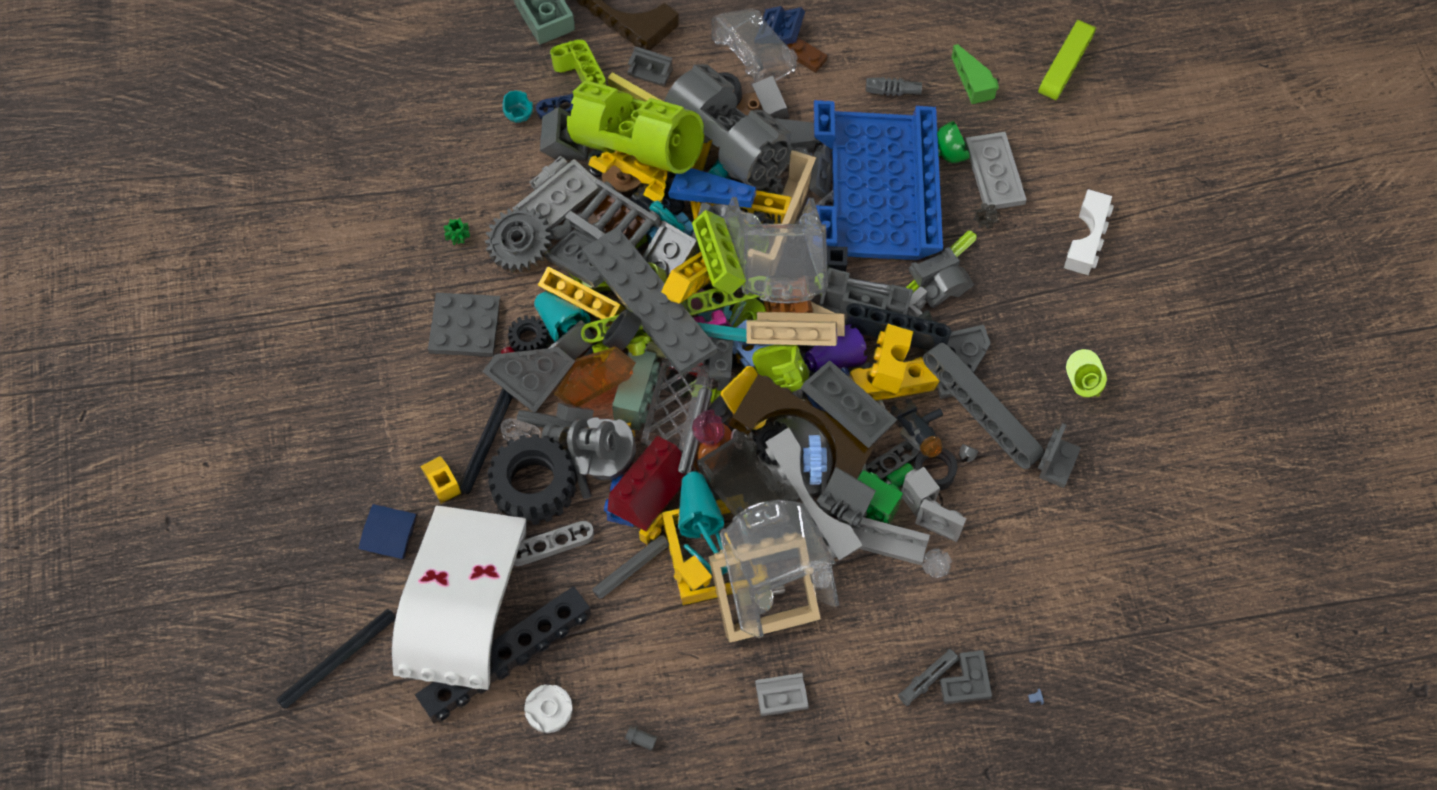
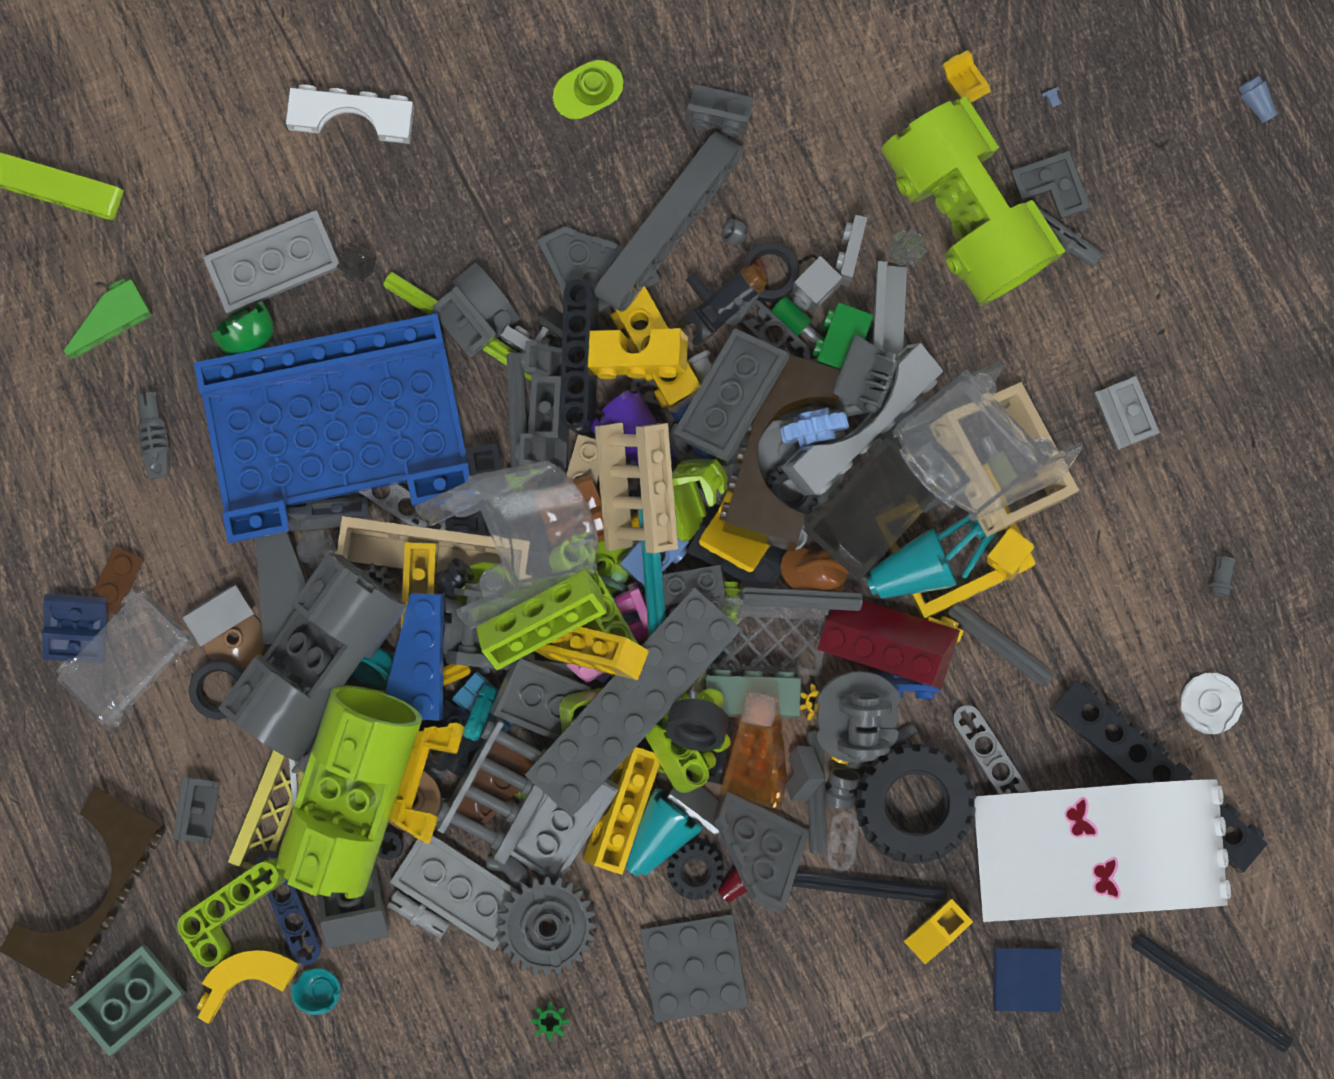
camera: 105 degrees left, 20 degrees up
(543, 82) = (258, 964): none -> yellow arch
(708, 428) = (803, 578): clear pink hair -> none
(1001, 590) = (997, 243): none -> lime cylinder
(1060, 633) = (965, 77): none -> yellow bracket

